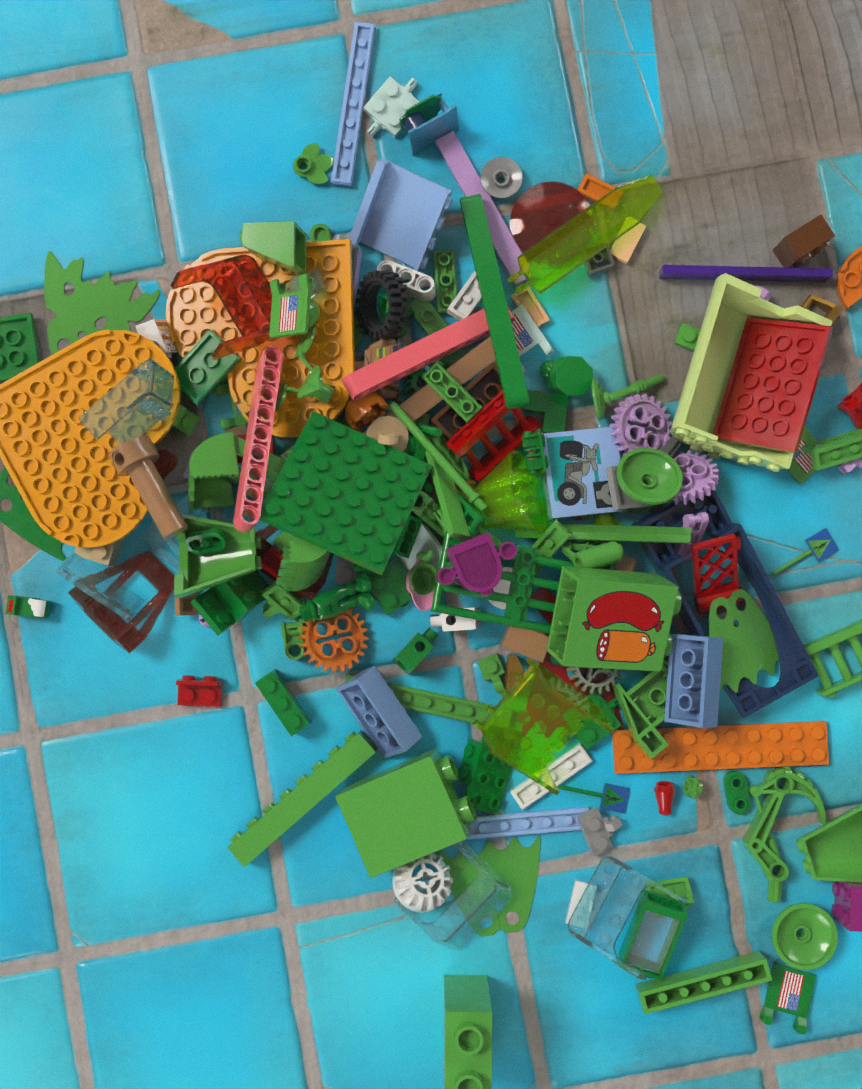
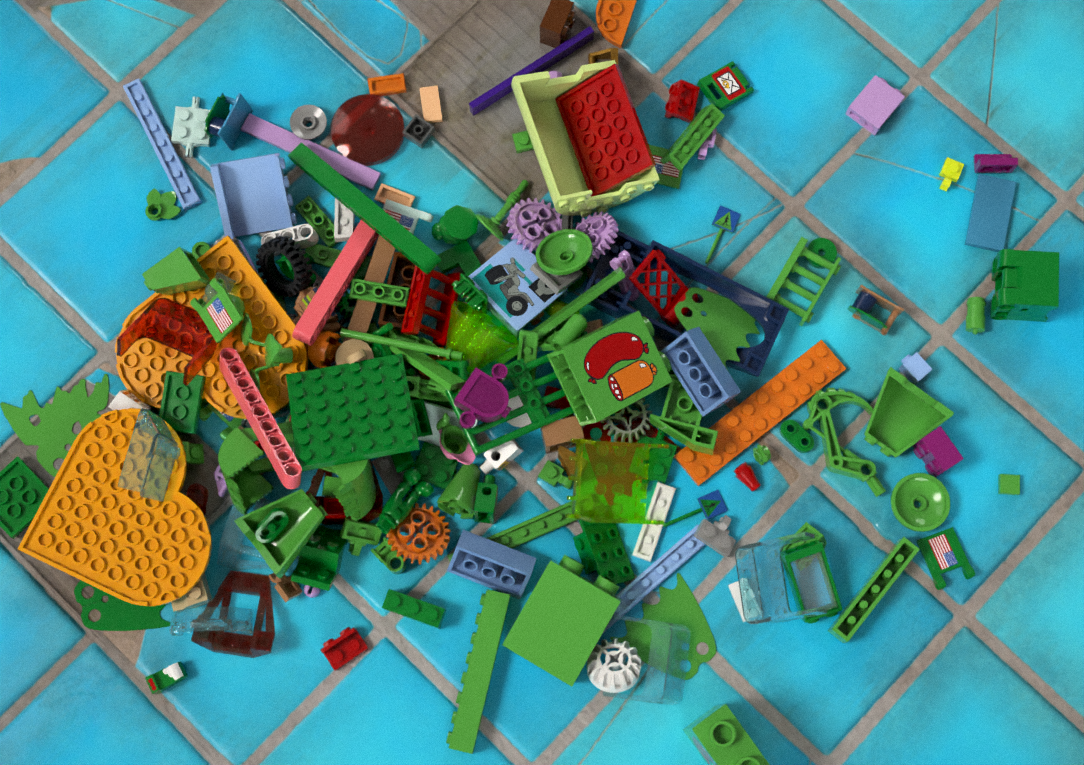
camera: 35 degrees left, 10 degrees down
(137, 459) = (177, 498): medium nougat piece -> none
(398, 628) = (461, 492): none -> bright green cone
(586, 234) = (398, 119): clear neon green hinge -> none

